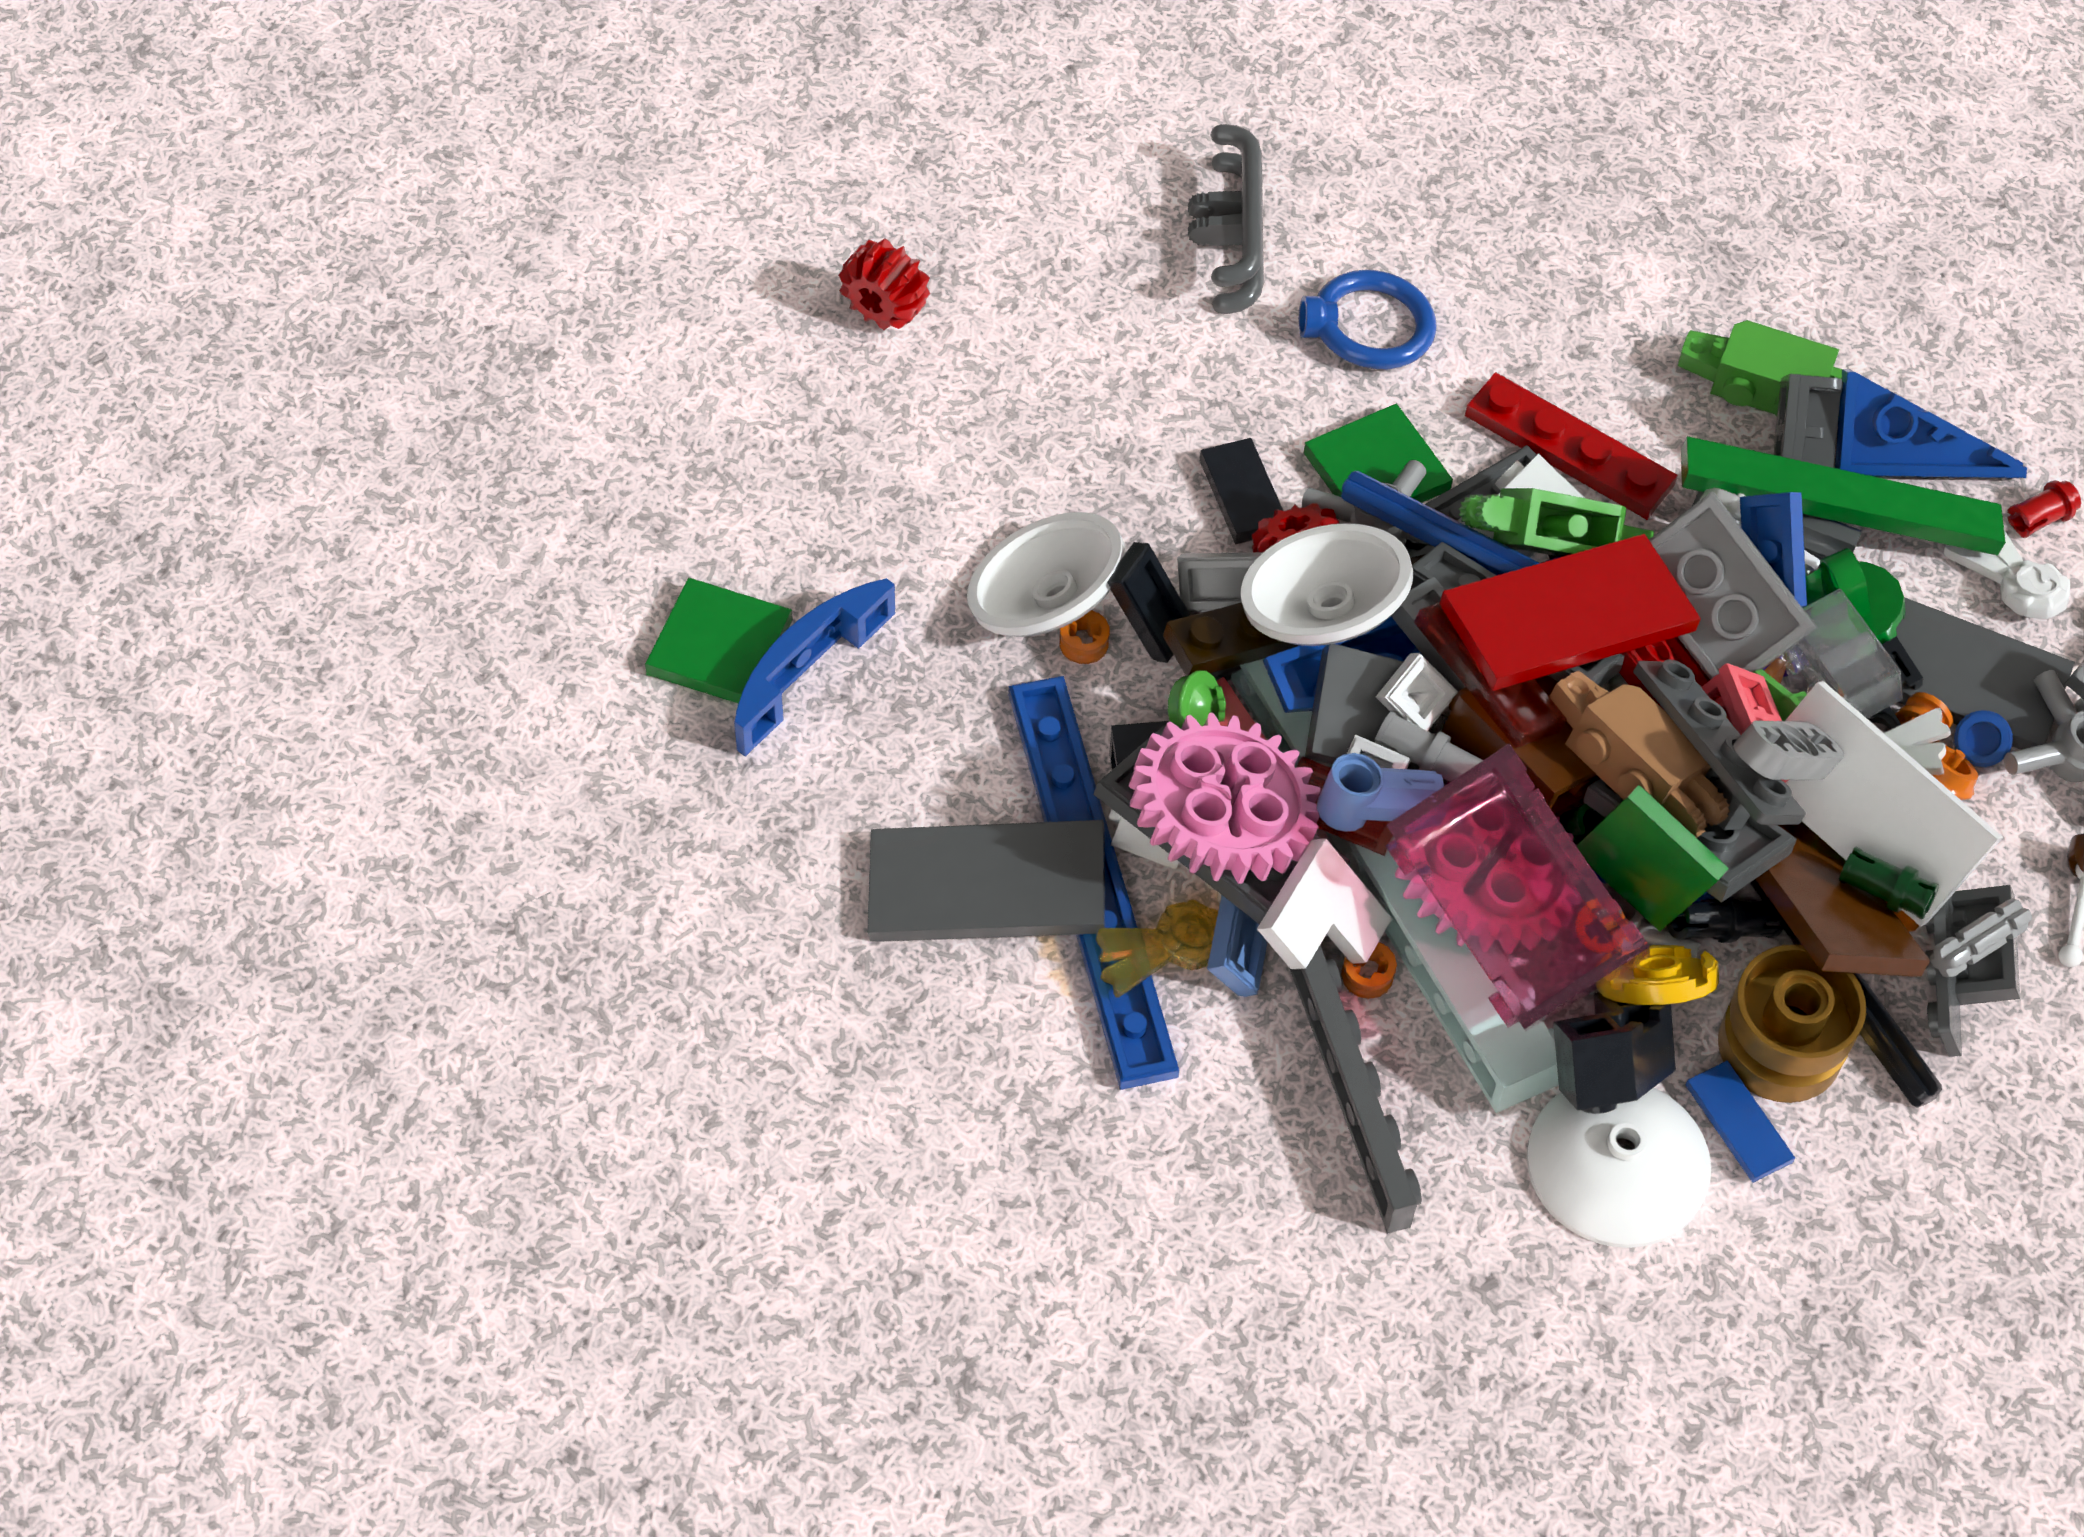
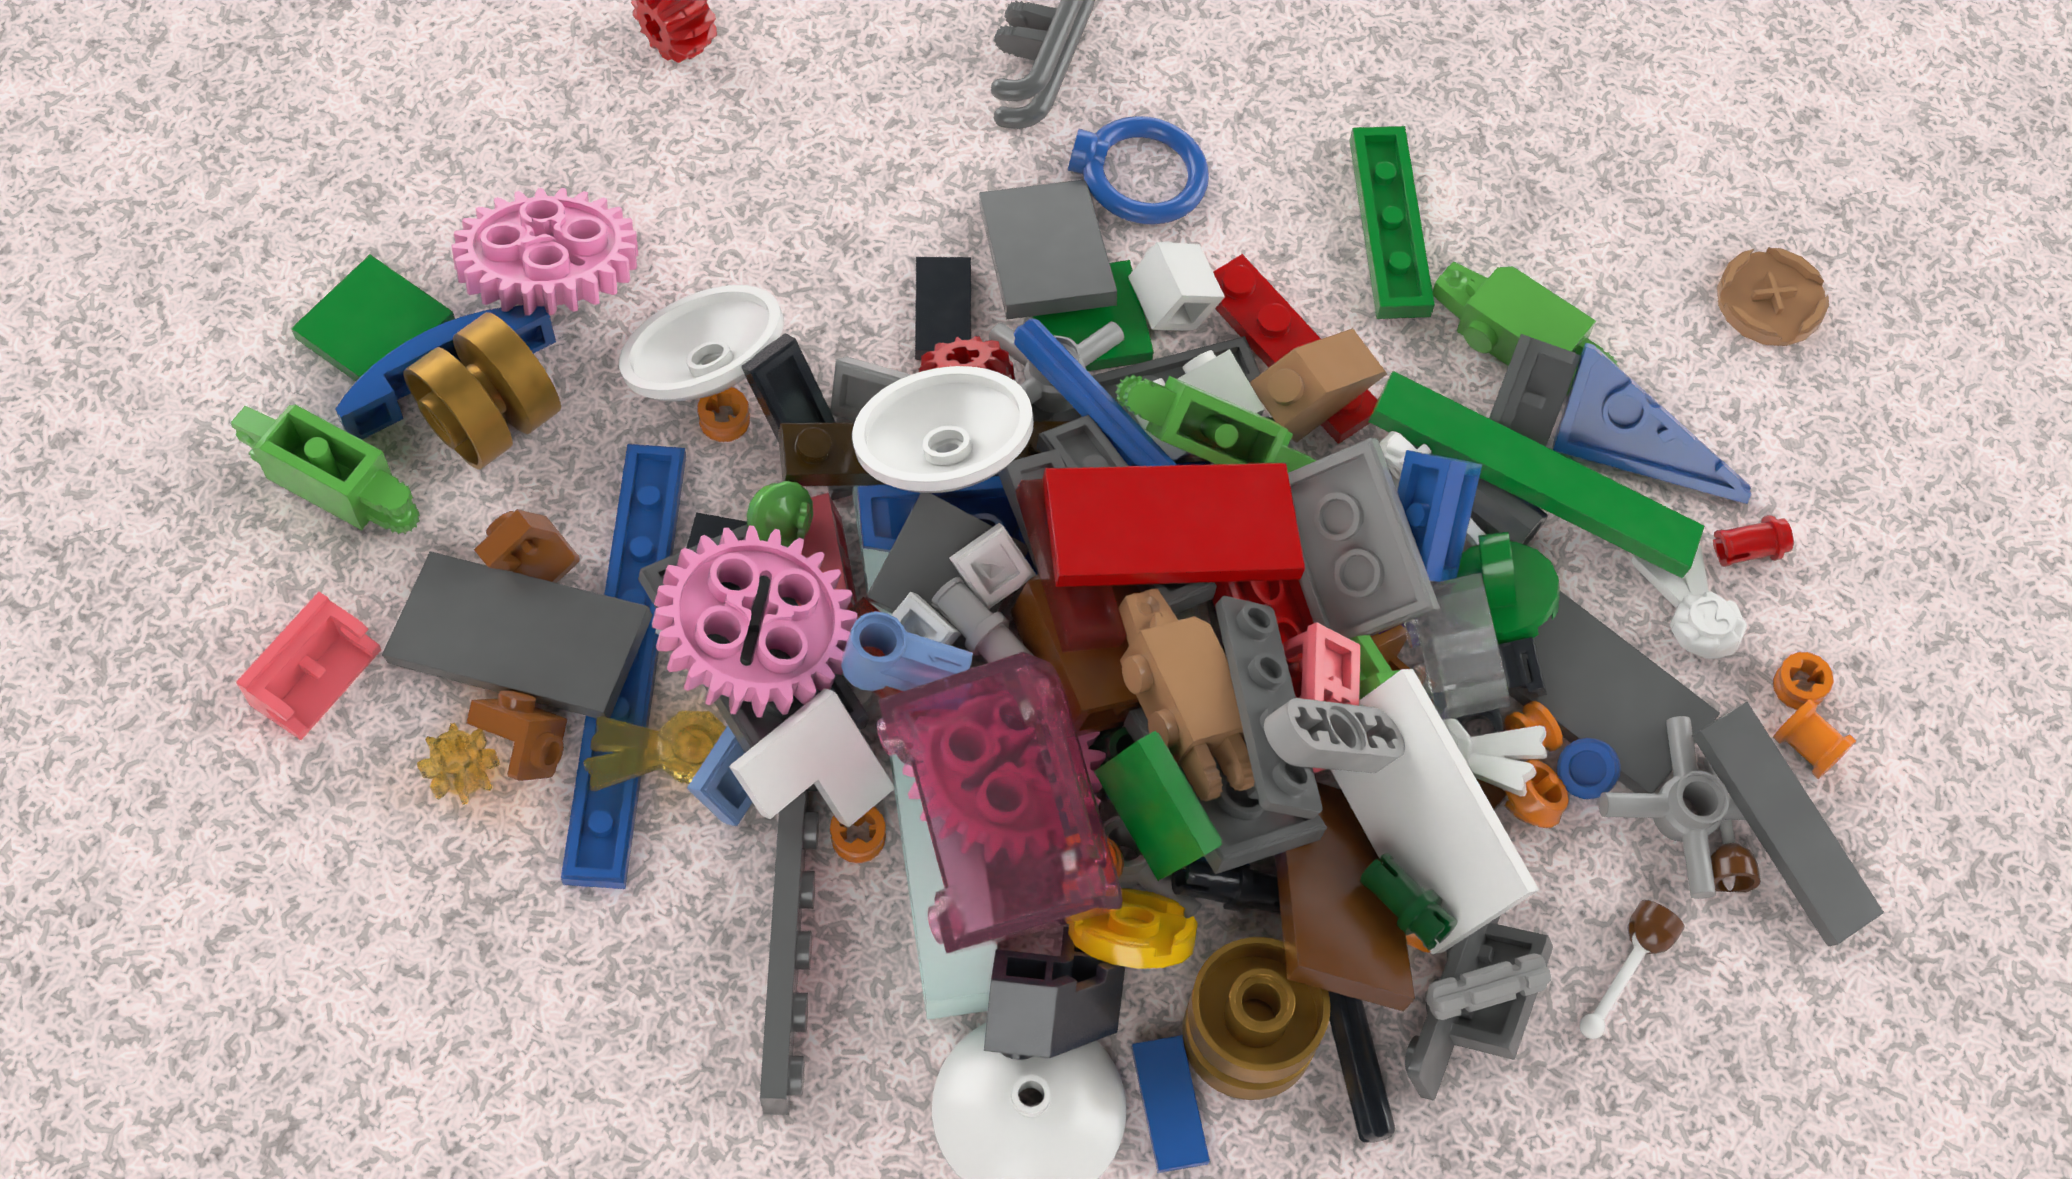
camera: 15 degrees right, 5 degrees up
(746, 777) = (327, 468): none -> bright green hinge
(806, 960) = (308, 666): none -> coral hinge
(861, 530) = (545, 251): none -> bright pink gear
(866, 668) = (491, 383): none -> pearl gold wheel
(967, 798) = (527, 546): none -> dark orange bracket
(989, 1022) = (458, 778): none -> clear yellow gear
(1022, 950) = (534, 731): none -> dark orange bracket
(1319, 412) = (1047, 249): none -> tile
(1451, 415) = (1175, 286): none -> white brick
(1616, 310) = (1391, 223): none -> green plate
(1621, 460) = (1317, 381): none -> medium nougat slope
(1975, 292) = (1772, 296): none -> medium nougat tile

